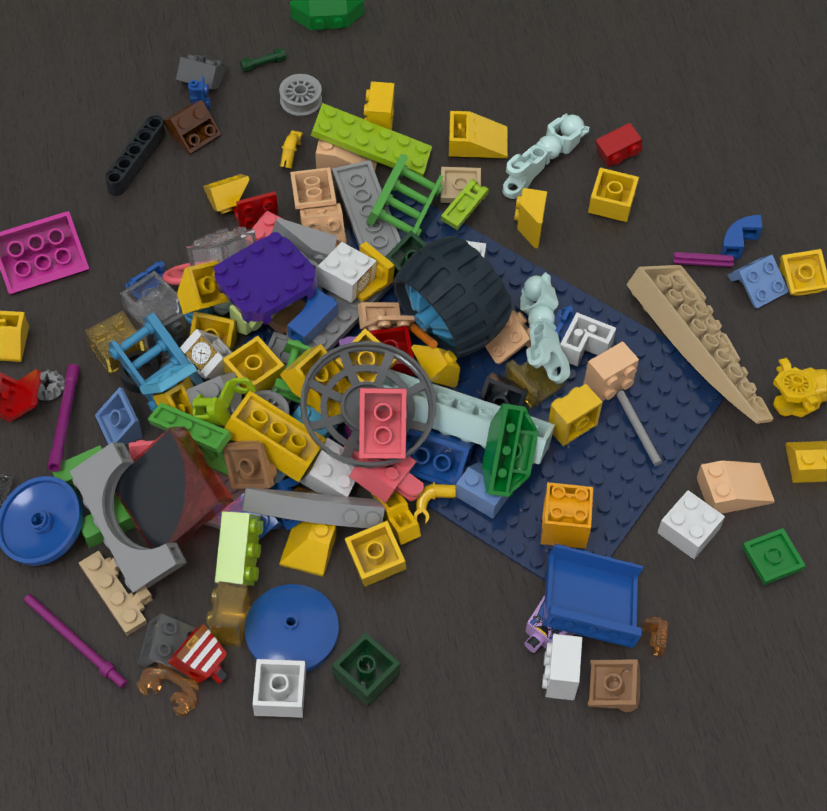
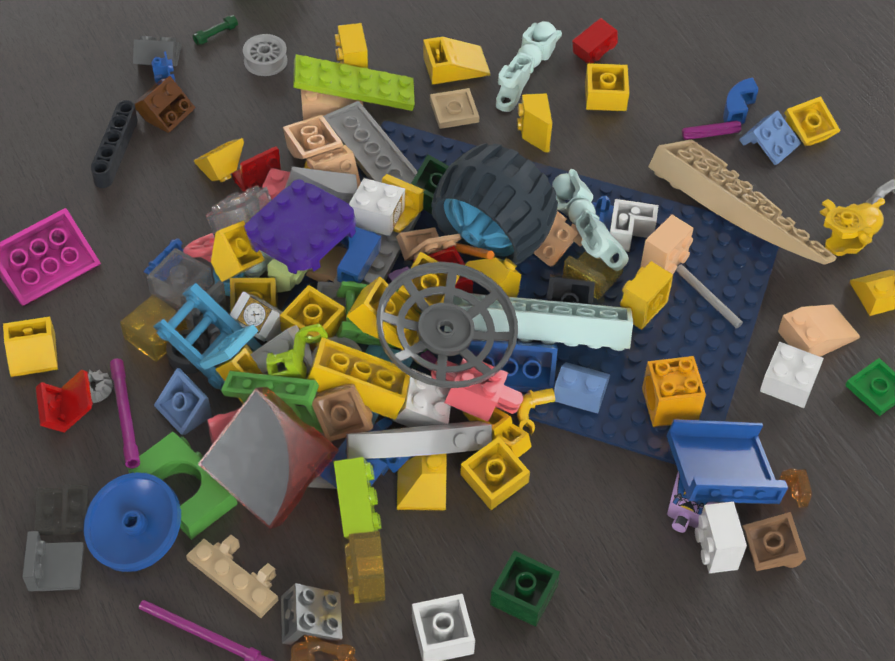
camera: 15 degrees left, 5 degrees down
(97, 483) = (188, 463): light grey arch -> none
(200, 656) = (349, 617): torso -> none
(289, 148) = (272, 107): yellow piece -> none
(313, 628) = (431, 564): blue dish -> none
(382, 422) = (470, 336): coral slope -> none
(394, 184) = (389, 132): bright green fence -> none
(464, 204) = (466, 124): lime plate -> none
(509, 450) = (599, 338): green wedge -> none

